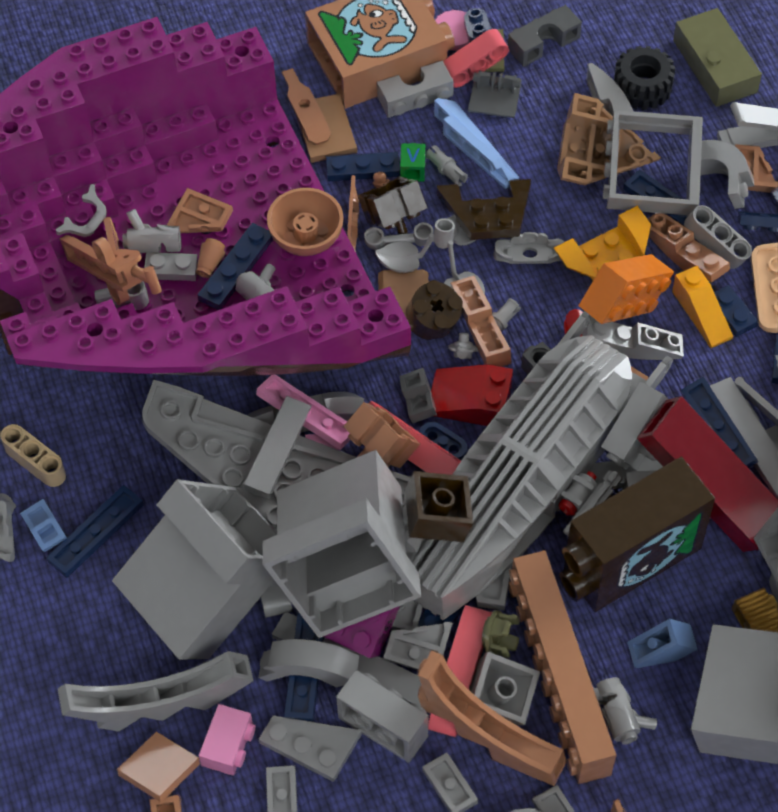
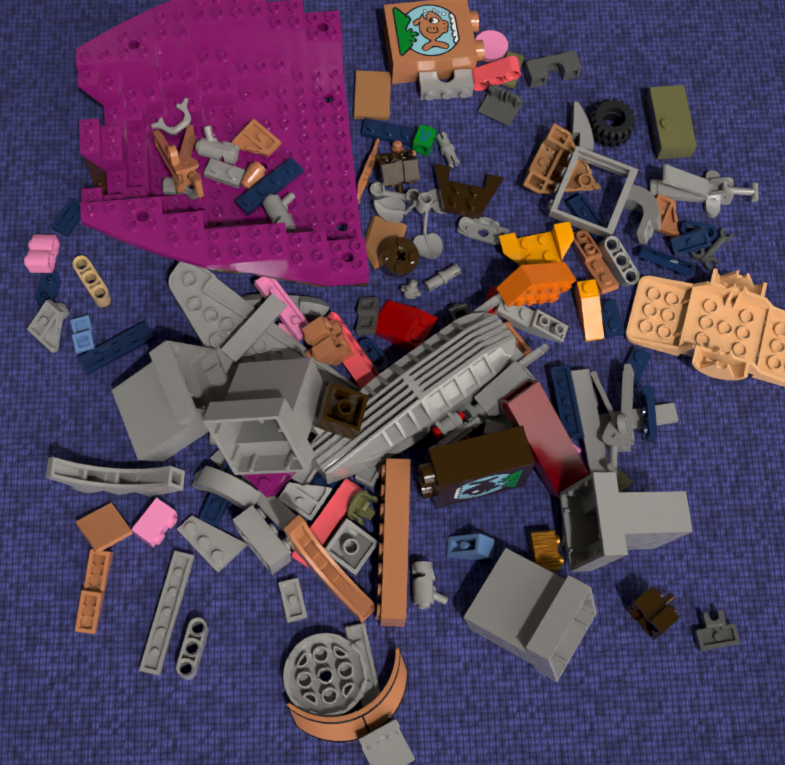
camera: 10 degrees right, 10 degrees up
(305, 221) = (326, 168): nougat piece -> none
(310, 117) = (363, 85): nougat piece -> none
(471, 141) = (472, 135): light blue wedge -> none
(476, 23) = (506, 46): dark blue plate -> none
(481, 323) = (429, 276): nougat slope -> none

